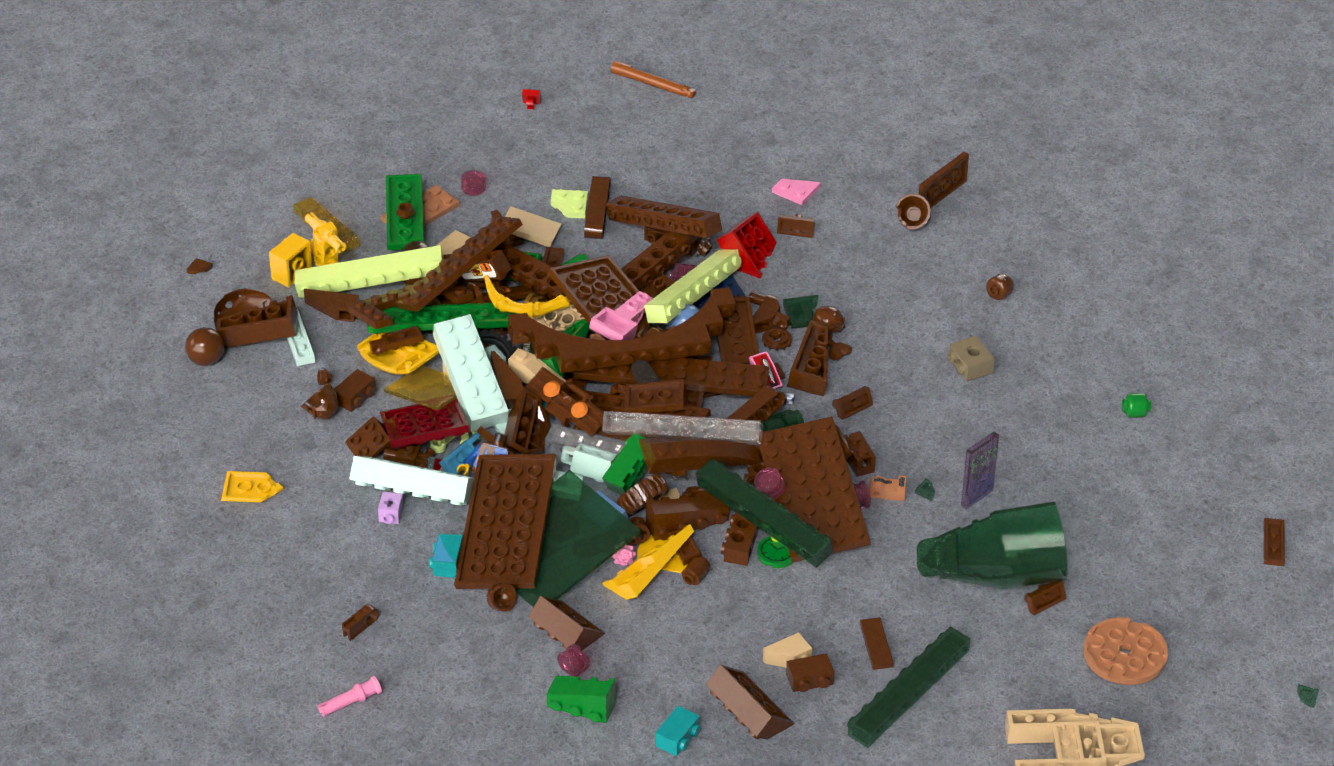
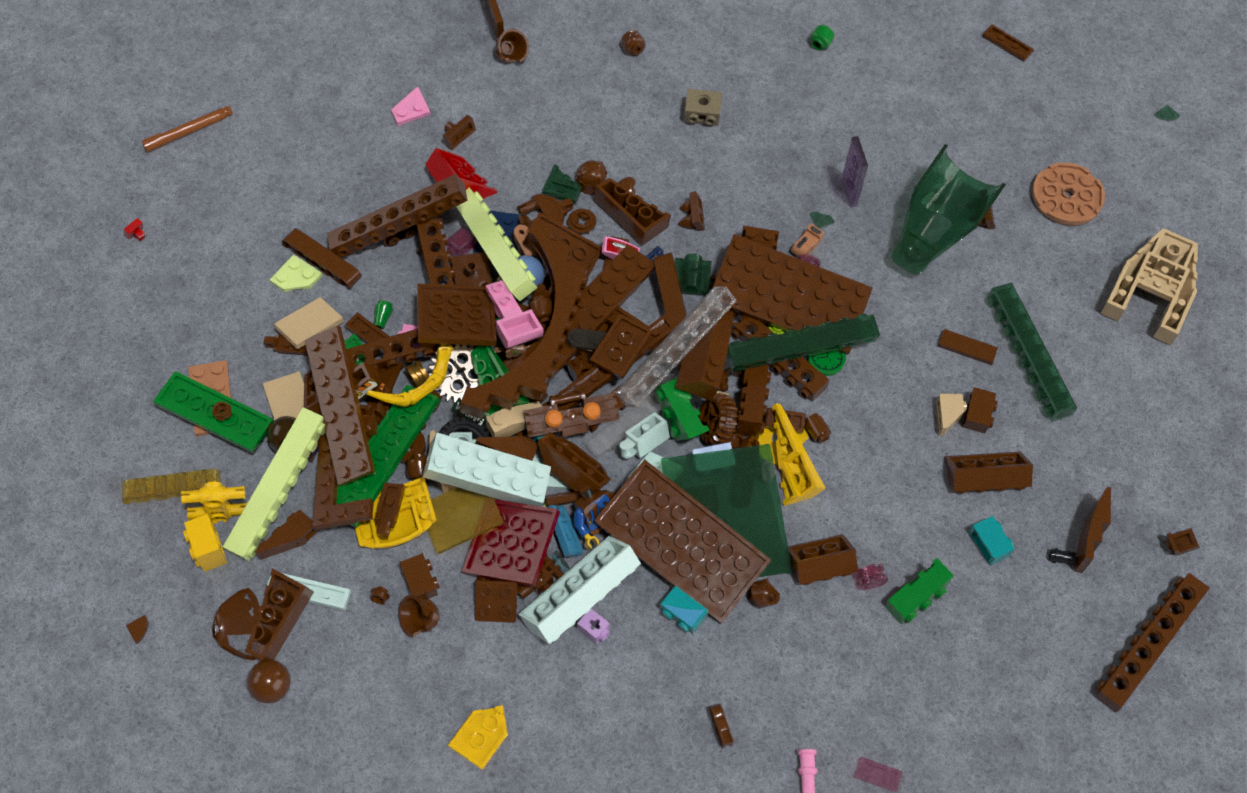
camera: 60 degrees left, 20 degrees up
(391, 742) = (878, 774): none -> clear pink tile
(473, 183) = (211, 336): clear pink wheel -> none
(770, 482) = (775, 320): clear pink wheel -> none

